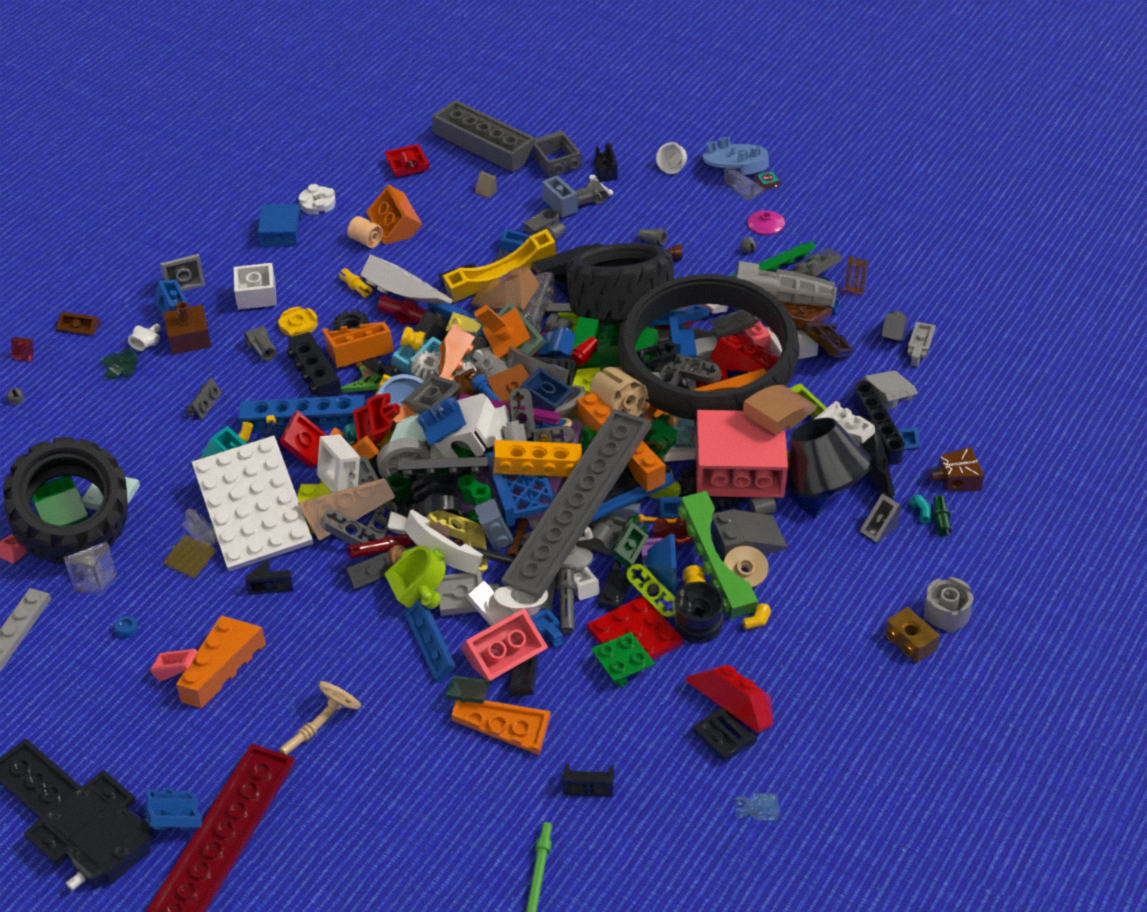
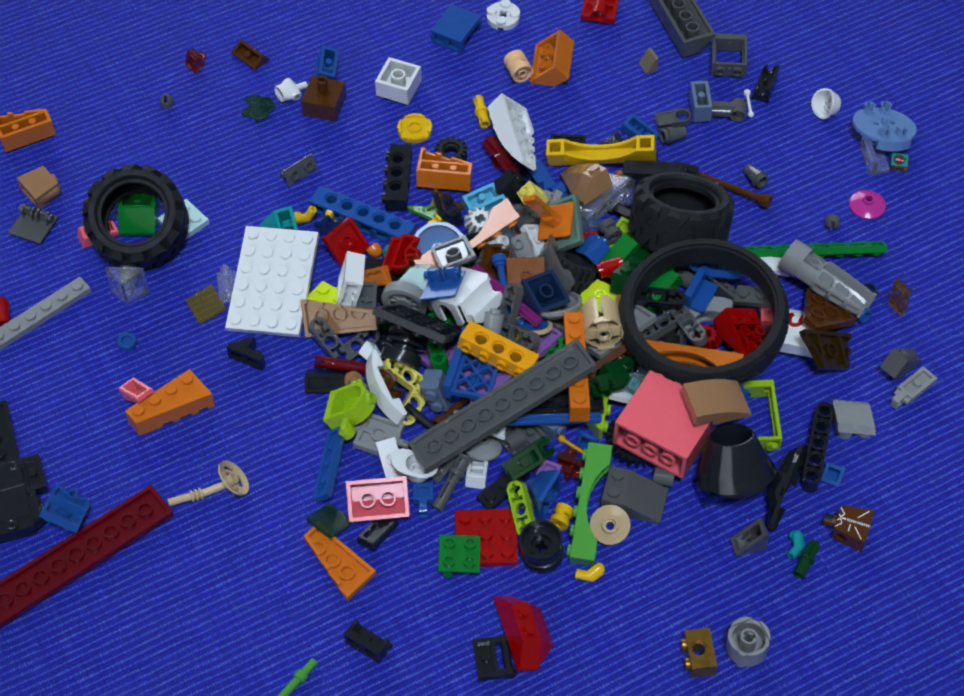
camera: 30 degrees right, 10 degrees up
(185, 270) = (351, 44): light grey slope -> none
(259, 340) = (372, 132): dark grey piece -> none
(414, 339) = (484, 190): yellow wheel -> none
(817, 262) = (874, 269): dark grey wing -> none
(855, 425) = (775, 437): white wing -> none

